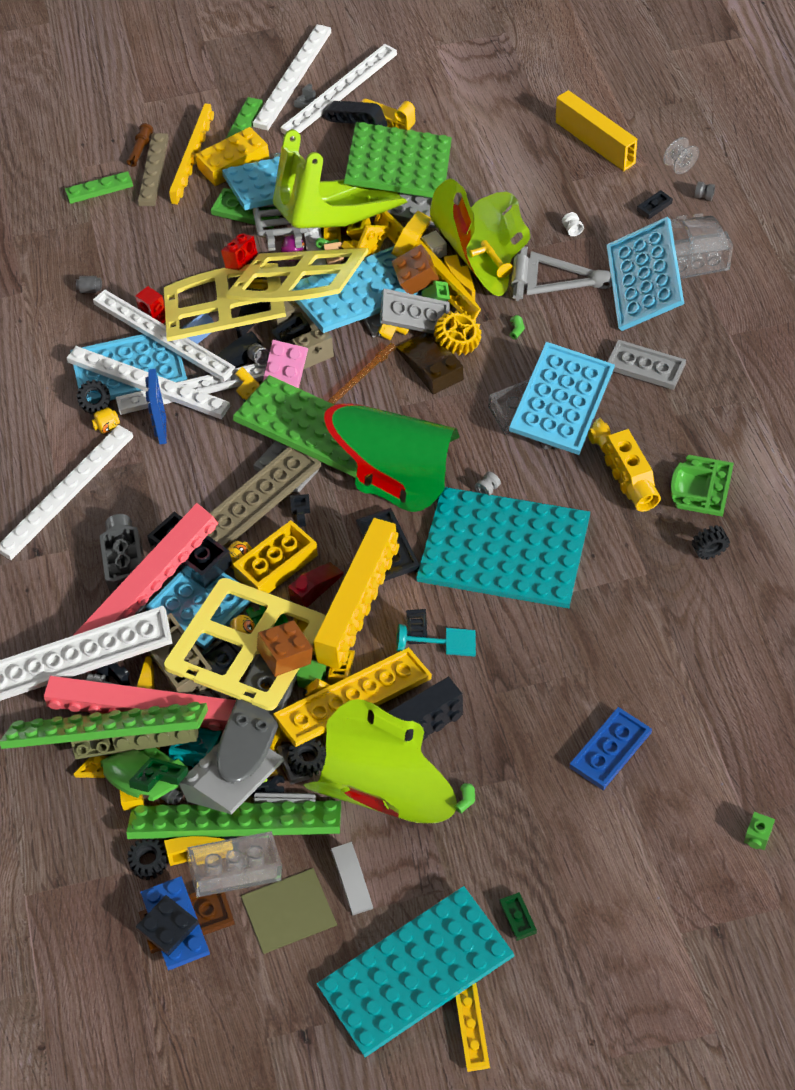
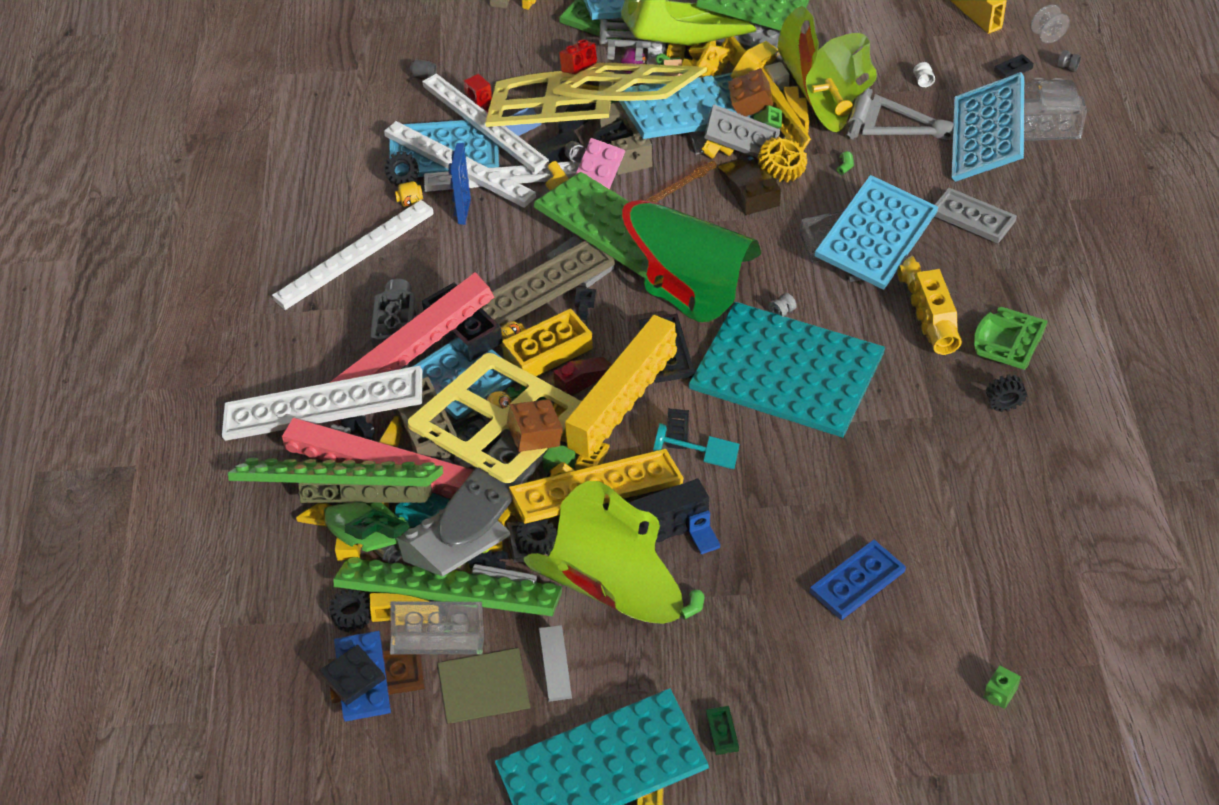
camera: 10 degrees right, 5 degrees down
(460, 727) = (702, 533): none -> blue bracket

